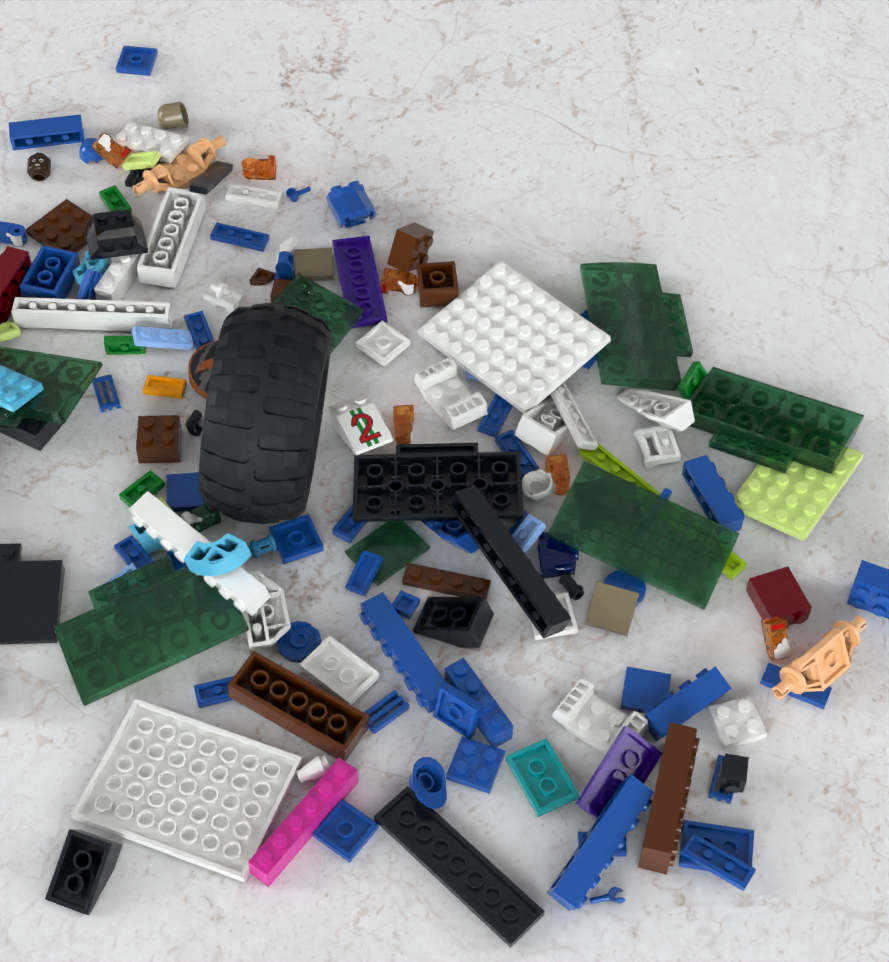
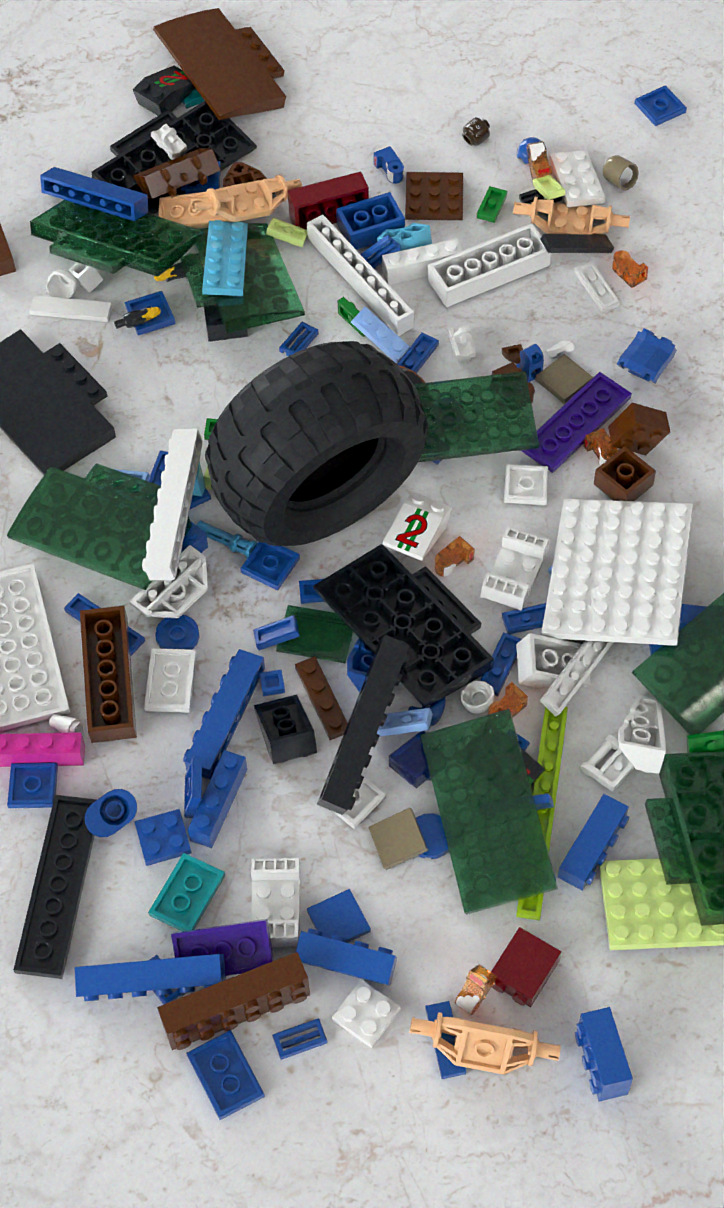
camera: 55 degrees right, 5 degrees up
(46, 132) = (517, 109): blue brick -> none
(116, 246) = (438, 241): black wedge -> none
(217, 557) = (164, 515): medium azure brick -> none
(239, 237) = (542, 309): blue tile -> none
(293, 193) = (625, 312): blue hand -> none
(404, 706) = (169, 733): blue tile -> none
(574, 590) = (393, 798): black pin -> none
(610, 896) = (115, 1019): blue hand -> none
(718, 861) = (207, 1082): blue tile -> none
(734, 773) = (300, 1040): black brick -> none

